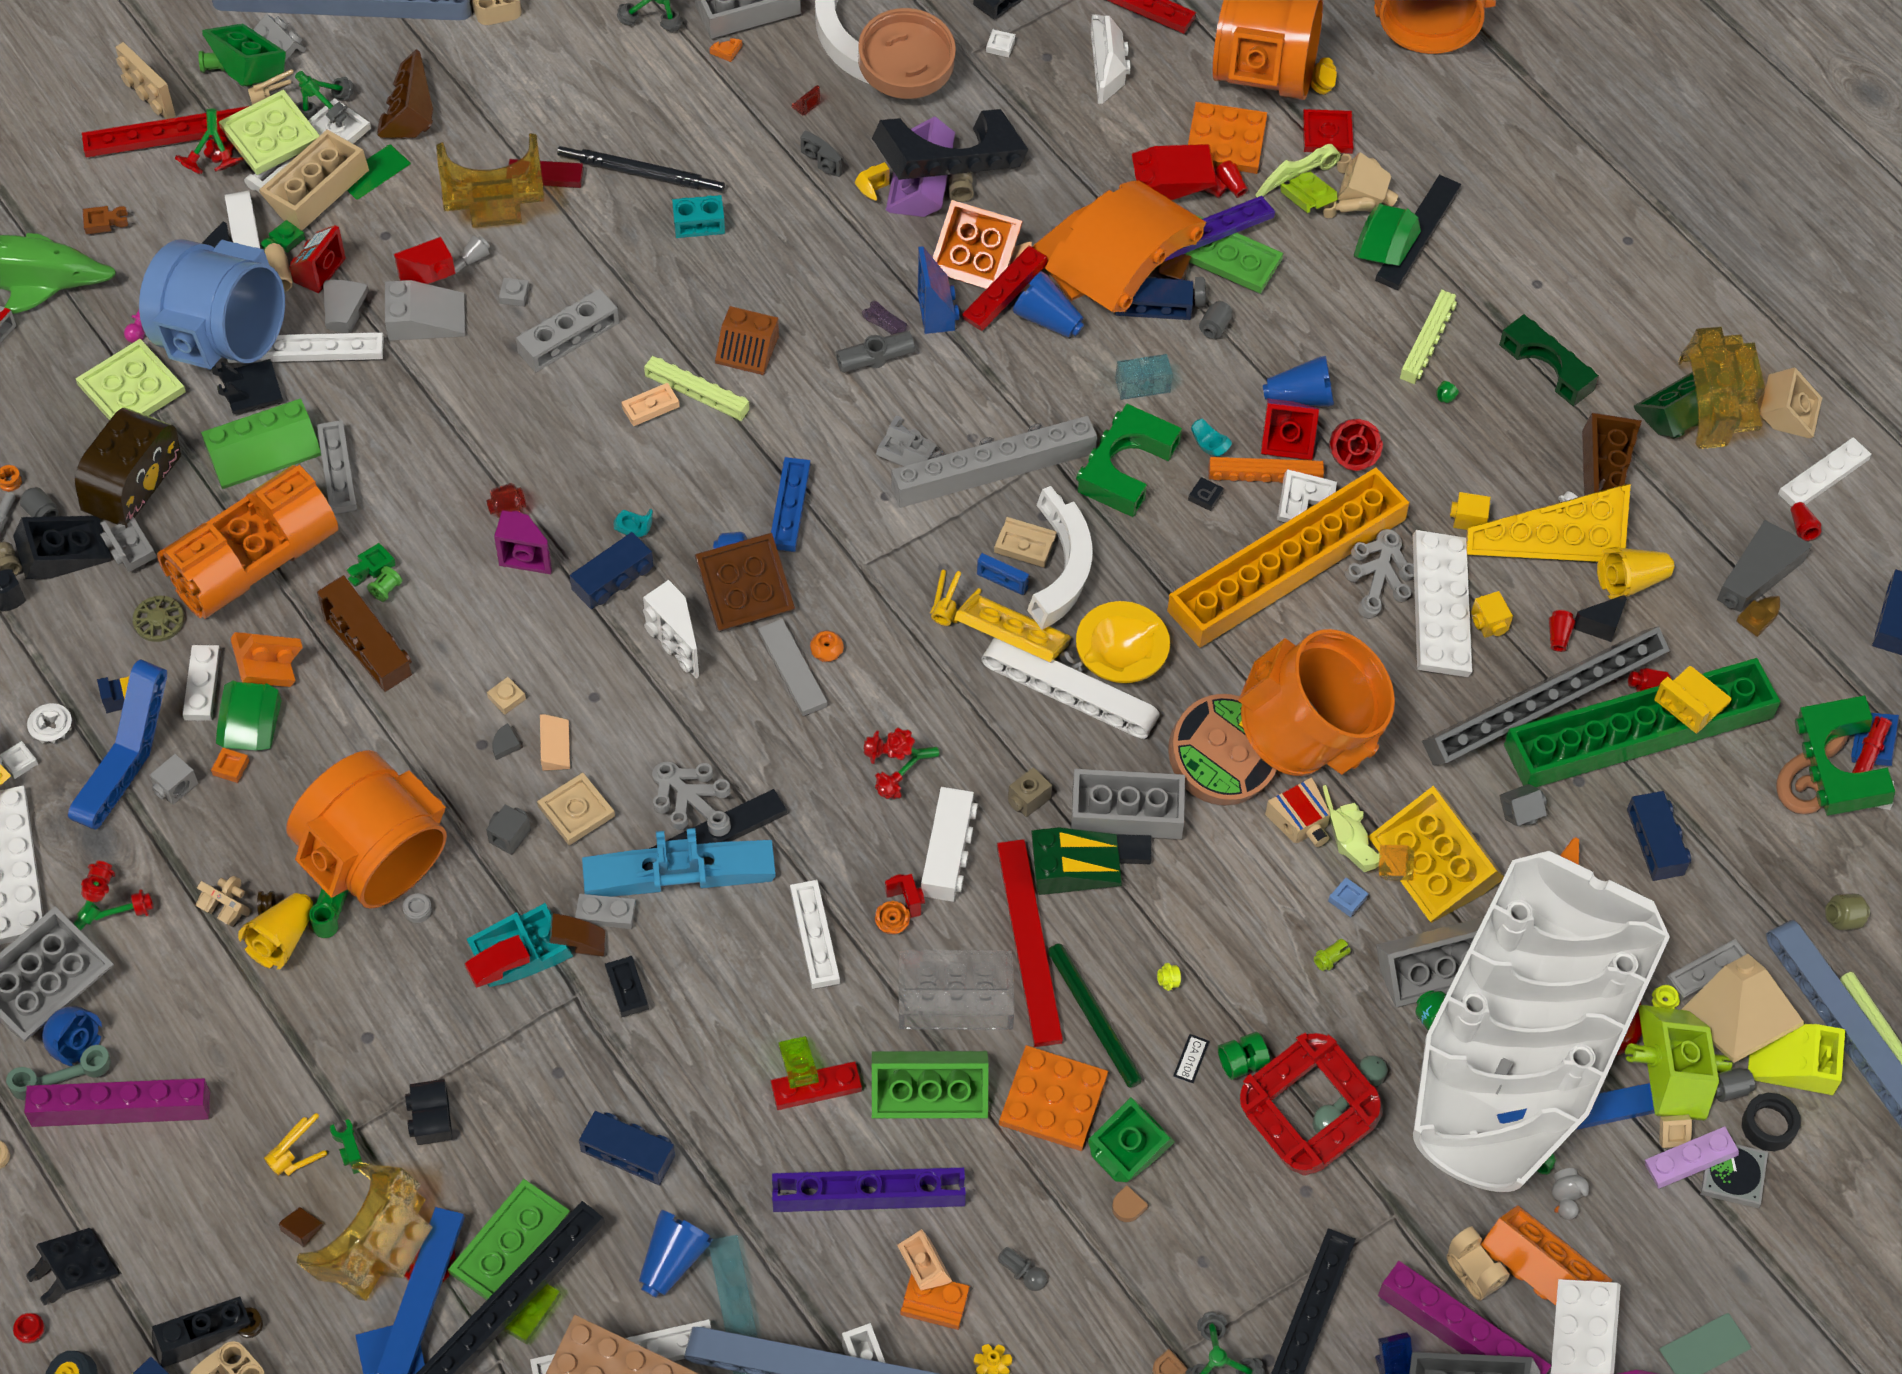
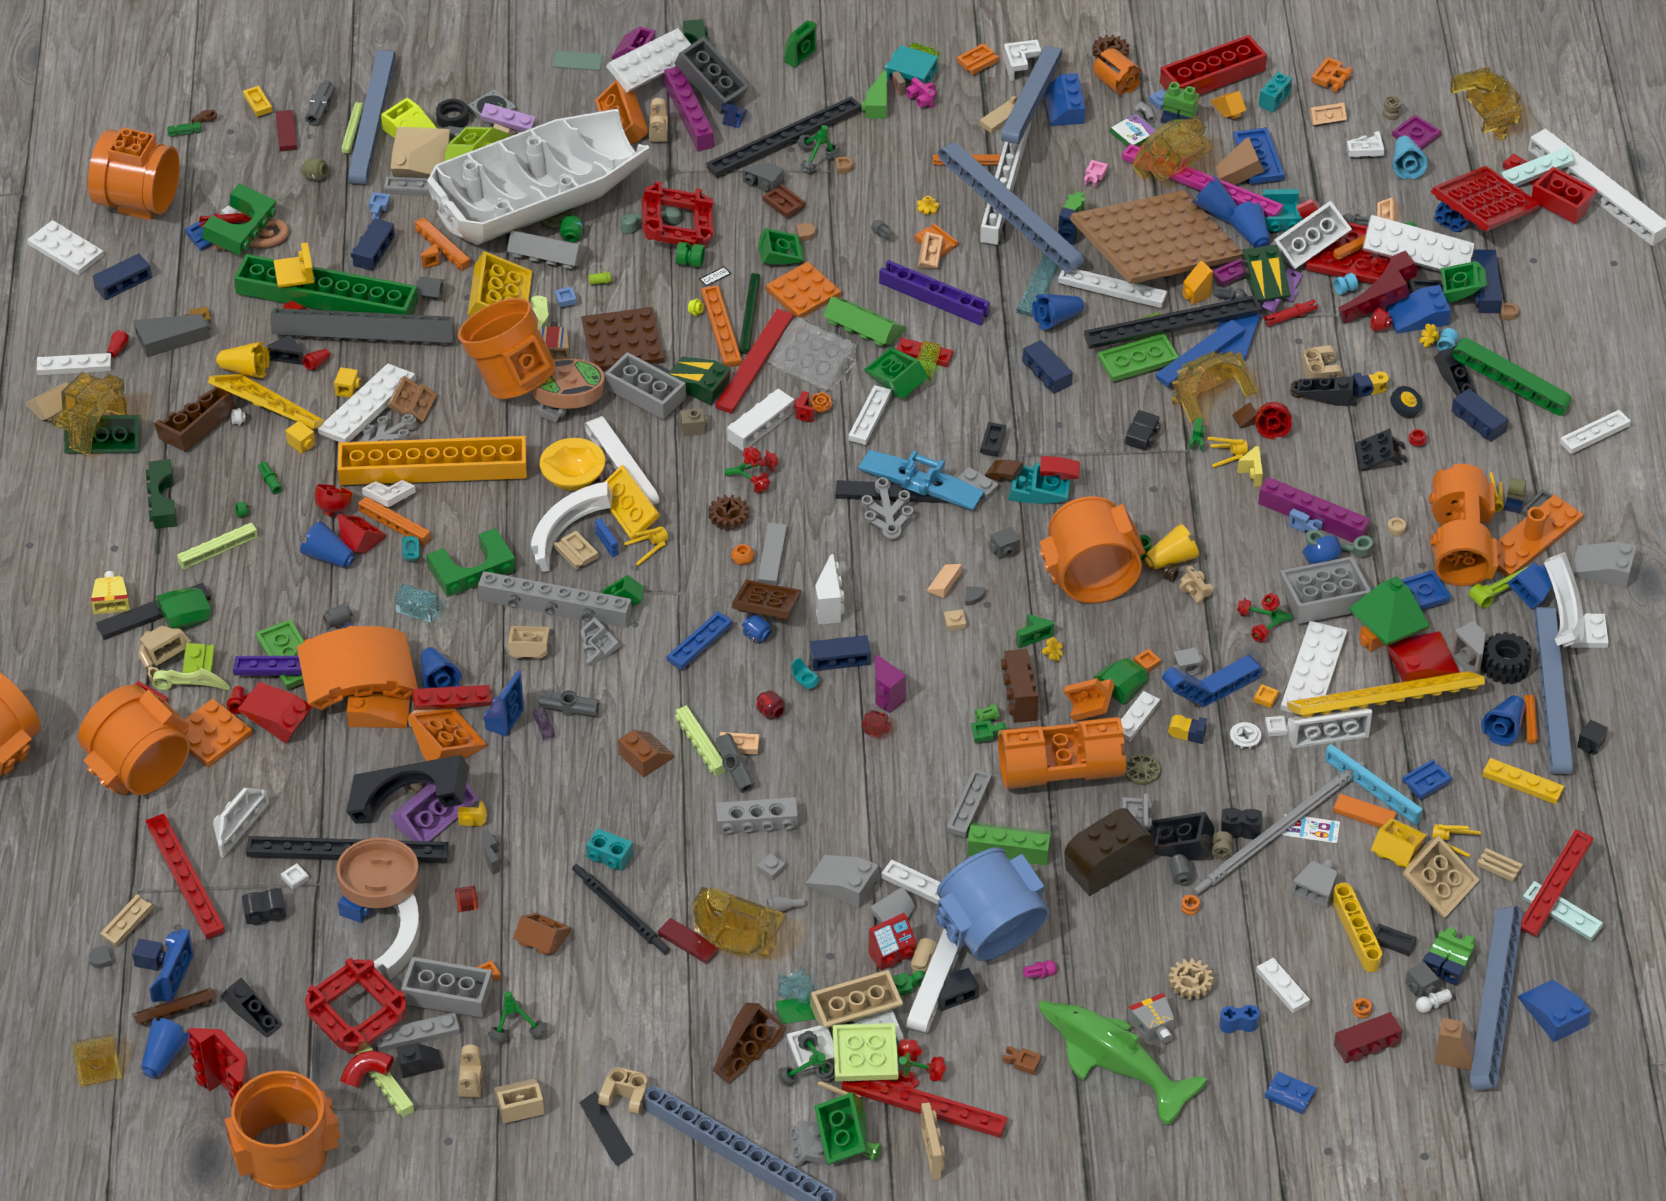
camera: 145 degrees left, 10 degrees down
(51, 795) = (1266, 696): none -> light orange tile
(125, 1074) = (1301, 522): none -> medium blue plate
(131, 381) = (1075, 926): yellowish green plate -> none
(245, 1139) = (1251, 464): none -> light yellow slope
(251, 1229) = (1273, 420): none -> red cylinder
(354, 710) = (1053, 649): none -> yellow plant
(392, 725) = (1035, 631): none -> green slope
(393, 175) = (797, 982): none -> clear light blue hips
(425, 262) = (823, 891): red slope -> none
(576, 808) = (957, 537): tan plate -> none
(632, 368) = (735, 762): none -> dark grey piece
(646, 463) = (770, 705): none -> dark red head
(700, 103) = (541, 933): none -> dark orange slope
(824, 1013) = (897, 372): none -> green slope
(885, 678) = (728, 512): none -> reddish brown gear
(923, 510) = (626, 588): none -> green slope
(979, 83) = (333, 848): none -> black plate
(982, 398) = (528, 641): none -> tan slope
(1116, 974) = (721, 326): none -> orange tile
(1196, 1239) = (784, 201): none -> copper plate
(1206, 494) = (442, 527): black tile -> none
(1223, 879) = (619, 332): none -> reddish brown plate
(1255, 1264) = (763, 176): none -> dark grey slope
(1393, 631) = (411, 399): none -> medium nougat slope
(1396, 862) = (526, 290): clear yellow piece -> none
(1455, 446) = (270, 477): none -> green axle
(1478, 218) = (109, 594): none -> light yellow torso
(1715, 909) = (378, 202): none -> medium blue plate

